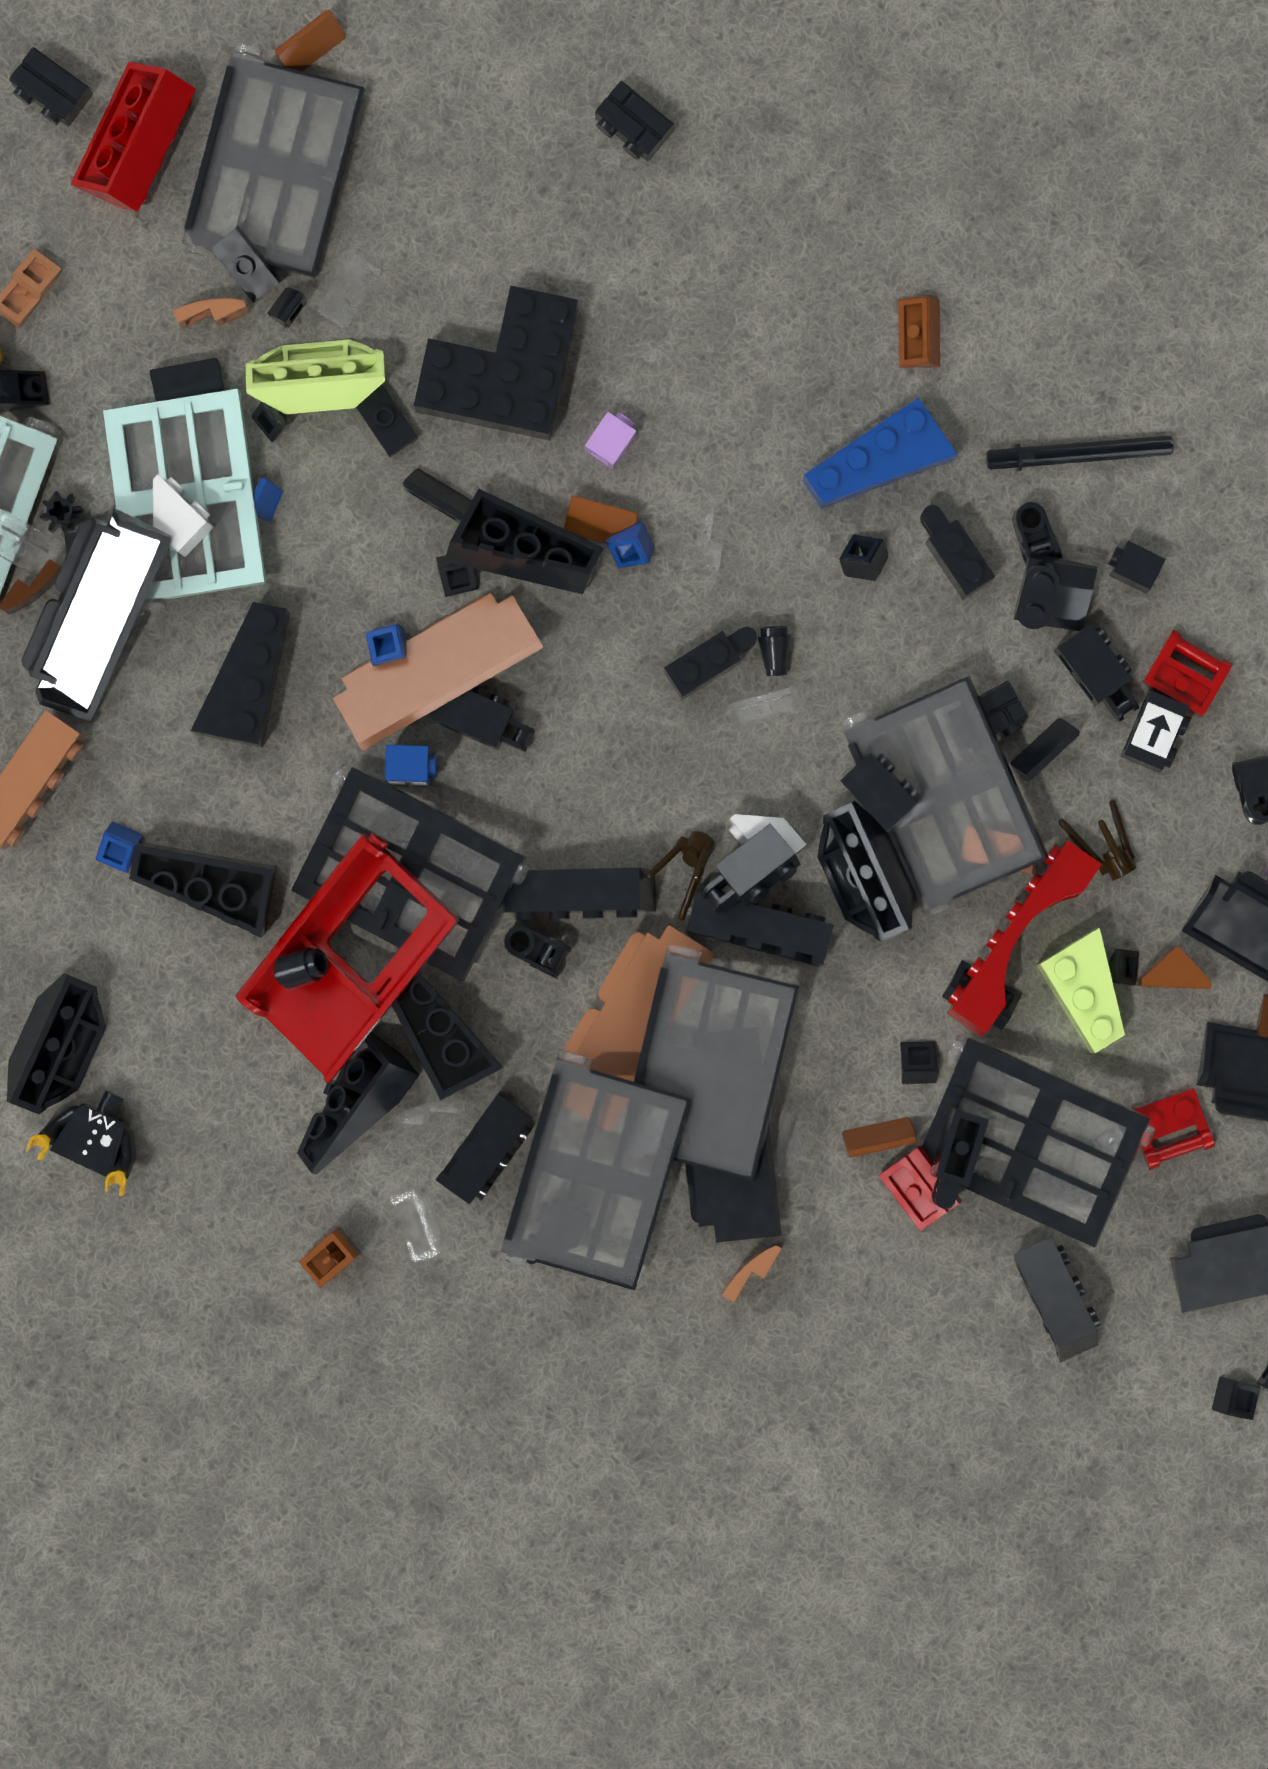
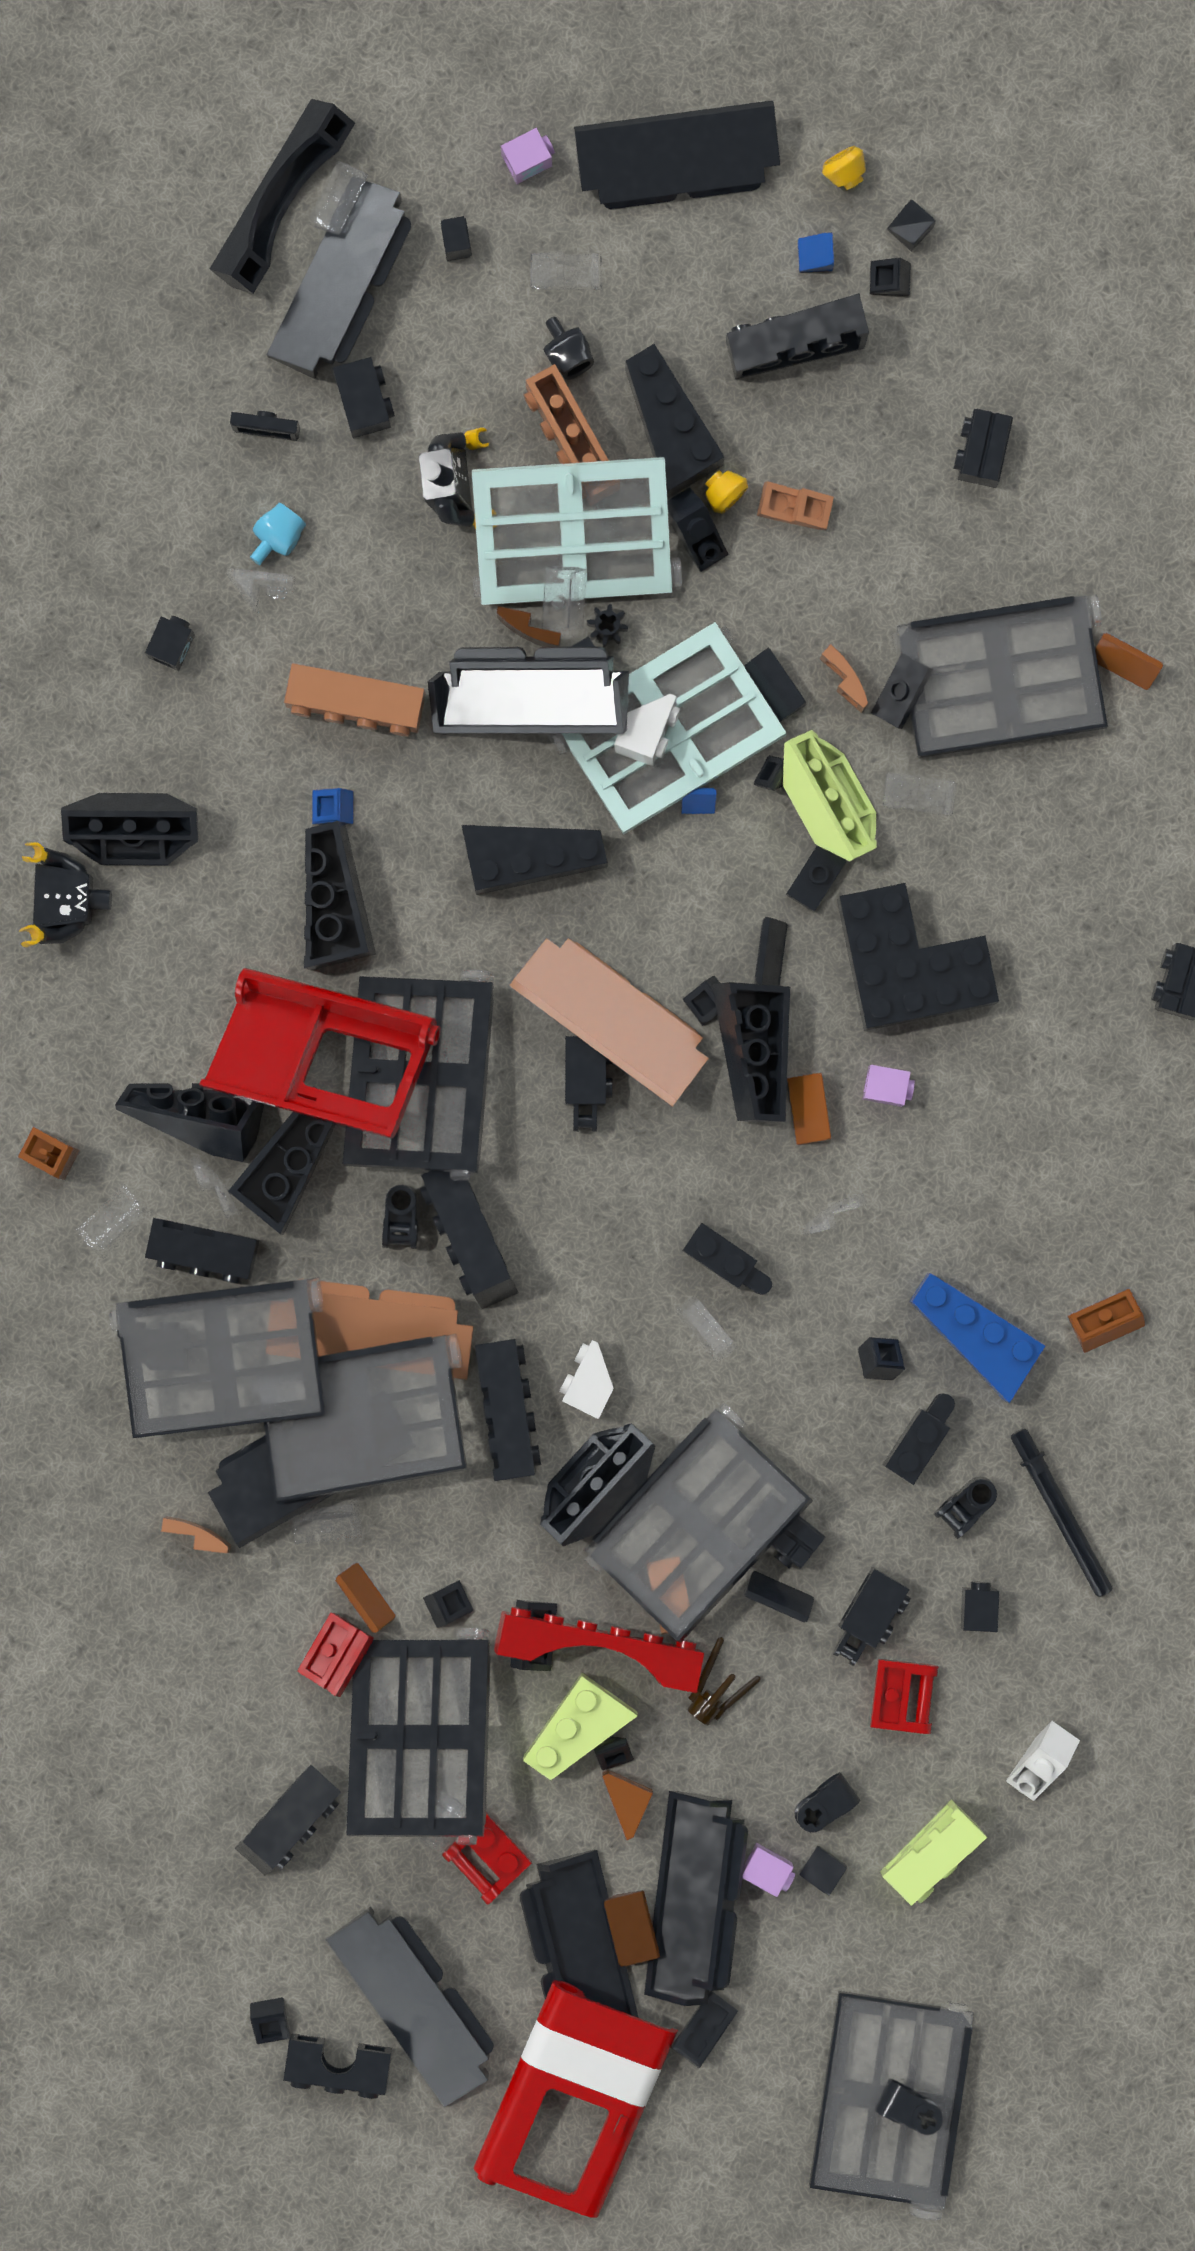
camera: 70 degrees right, 0 degrees up
(133, 135) = (973, 541): red slope -> none
(287, 306) = (880, 744): black slope -> none
(300, 968) = (291, 1015): black brick -> none
(386, 644) = (615, 965): blue slope -> none
(410, 765) = (515, 1033): blue brick -> none
(631, 546) = (799, 1145): blue slope -> none
(695, 853) = (547, 1323): dark brown plant -> none
(752, 870) = (552, 1381): brick -> none
(775, 649) = (763, 1314): black cone -> none
(881, 790) = (675, 1465): black brick -> none
(956, 1155) = (376, 1674): black brick -> none
(1054, 593) = (923, 1545): black slope -> none
(1156, 731) = (838, 1691): brick -> none

